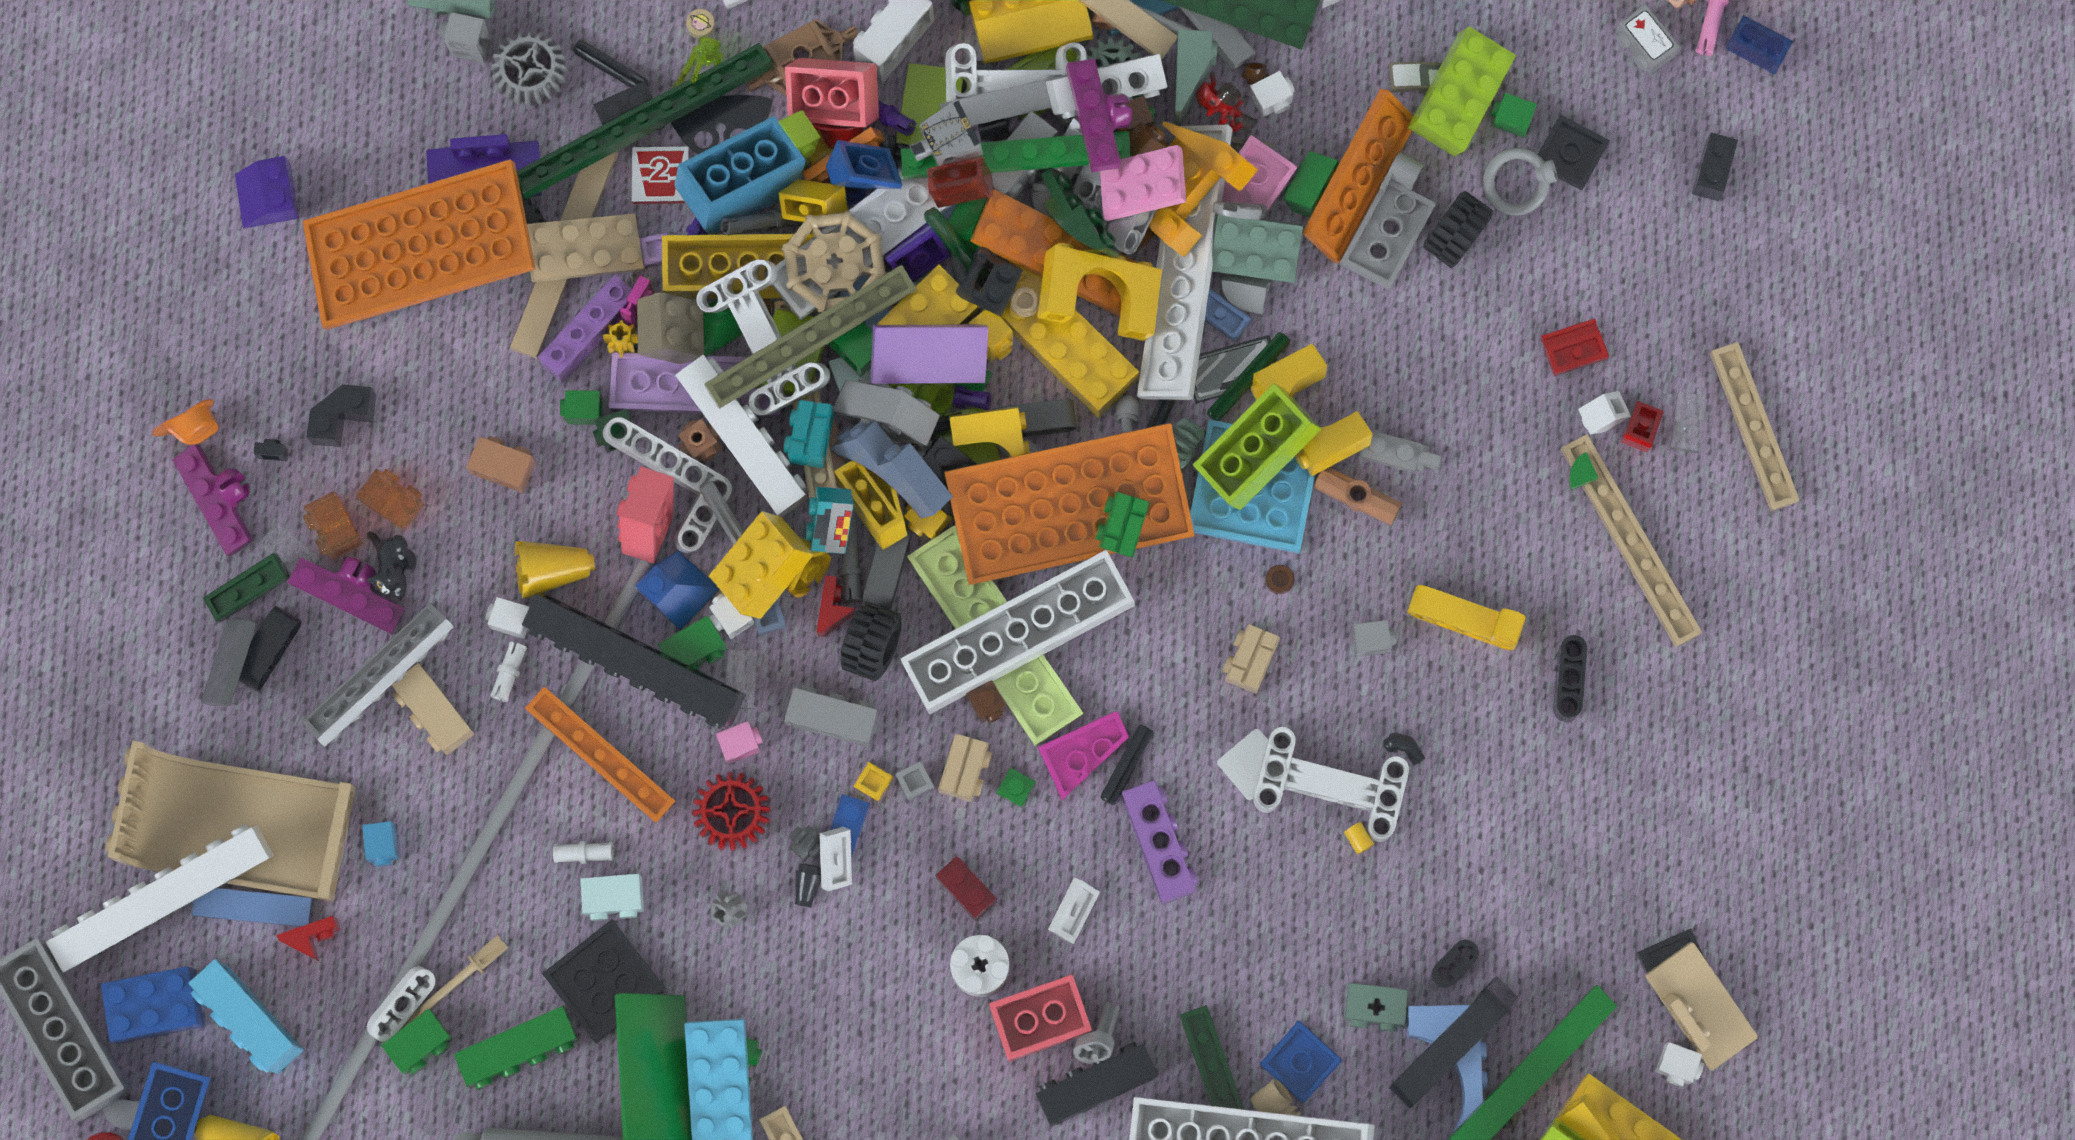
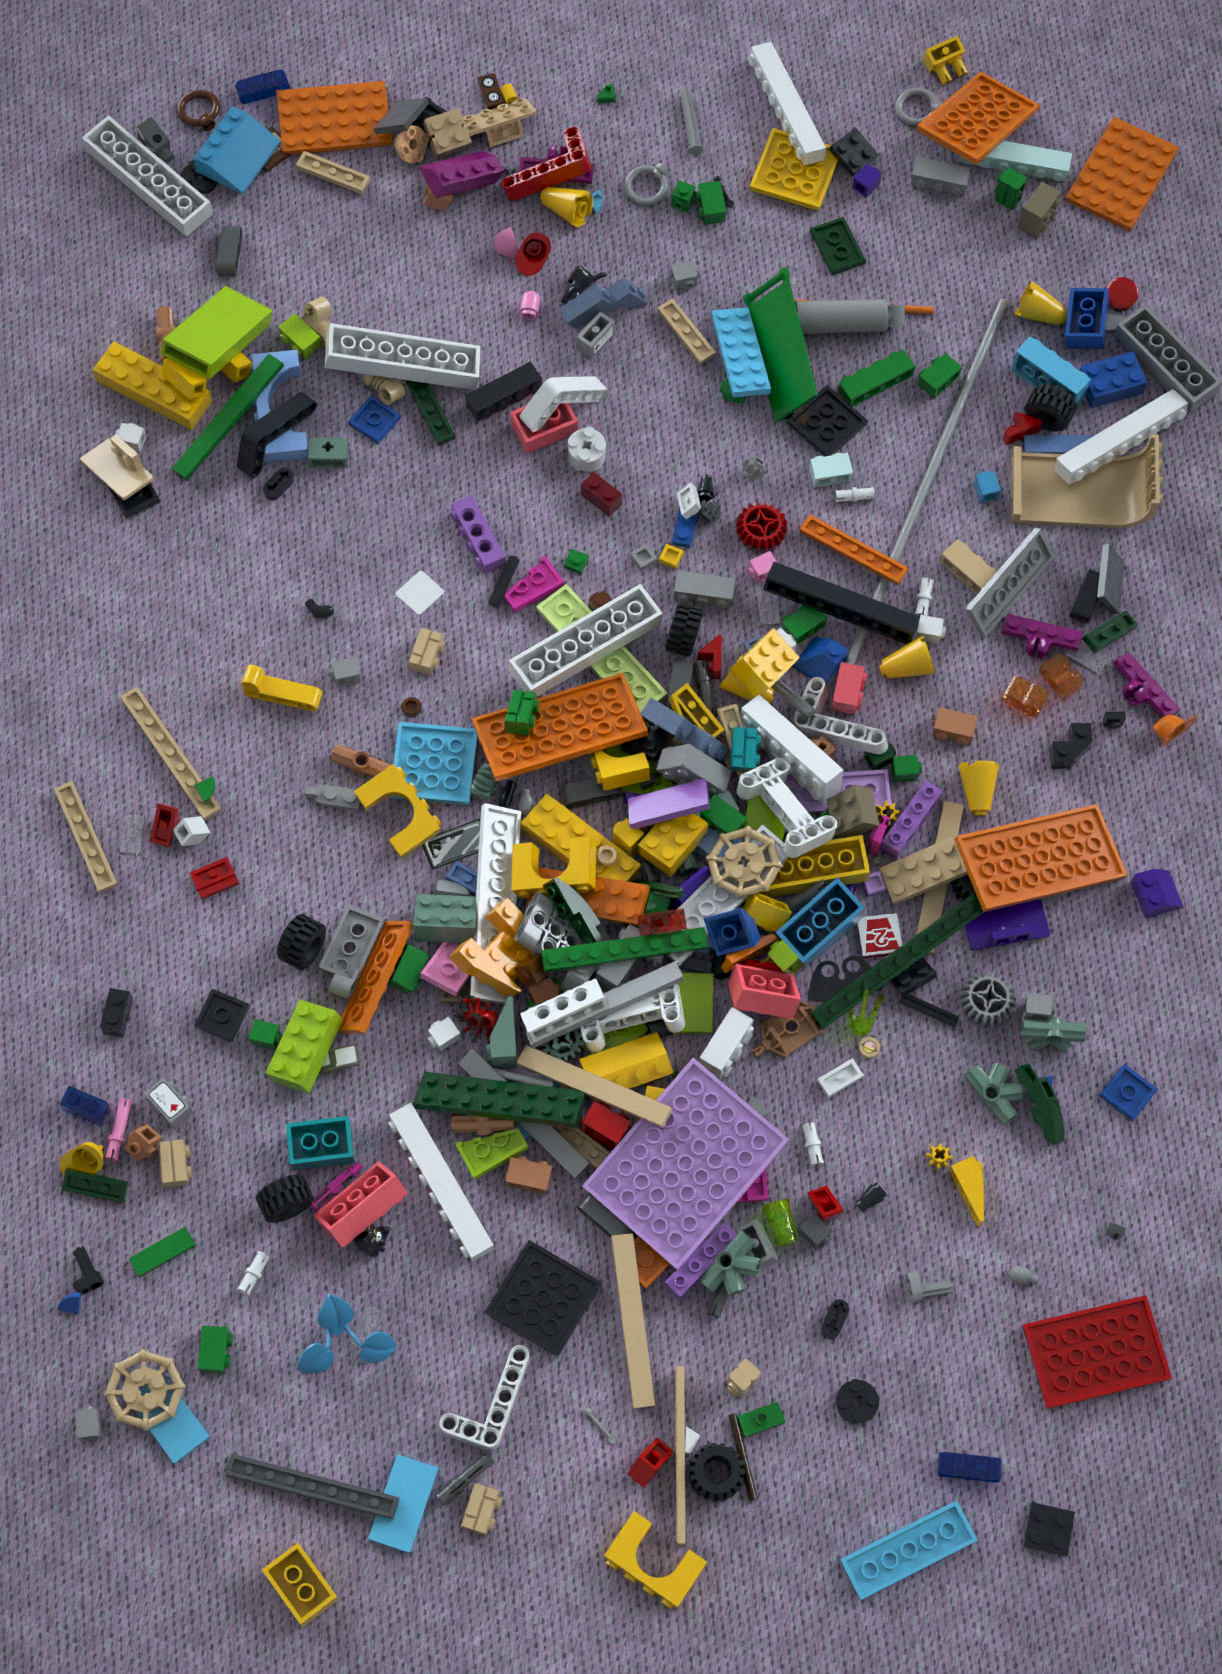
camera: 170 degrees right, 10 degrees down
(258, 954) = (1052, 406): none -> black tyre
(393, 561) = (1015, 656): black animal -> none
(407, 981) = (960, 385): white beam -> none
(478, 962) = (911, 424): tan piece -> none
(483, 370) = (979, 785): none -> yellow cone
(810, 336) = (752, 801): olive plate -> none
(830, 520) = (722, 694): brick -> none
(892, 117) = (719, 988): dark purple pin -> none
(947, 137) = (674, 947): light grey torso -> none
(964, 768) = (611, 567): tan brick -> none
(998, 285) = (626, 859): black plate -> none
(1005, 1039) = (557, 391): none -> white beam
(1073, 910) = (529, 489): white plate -> none
(1097, 114) = (568, 974): magenta plate -> none
(1098, 1044) = (503, 408): light grey piece -> none
(1143, 183) = (530, 930): bright pink plate -> none
(1240, 210) = (457, 934): light grey tile -> none
(1245, 379) = (444, 835): dark green axle -> none
(1254, 72) = (457, 1054): reddish brown plate -> none
(1257, 446) = (433, 770): lime brick -> none
(1331, 784) = (366, 579): white beam -> none
(1359, 838) = (346, 551): yellow hinge -> none
(1545, 173) = (240, 993): light grey piece -> none
(1577, 666) = (209, 651): black beam -> none

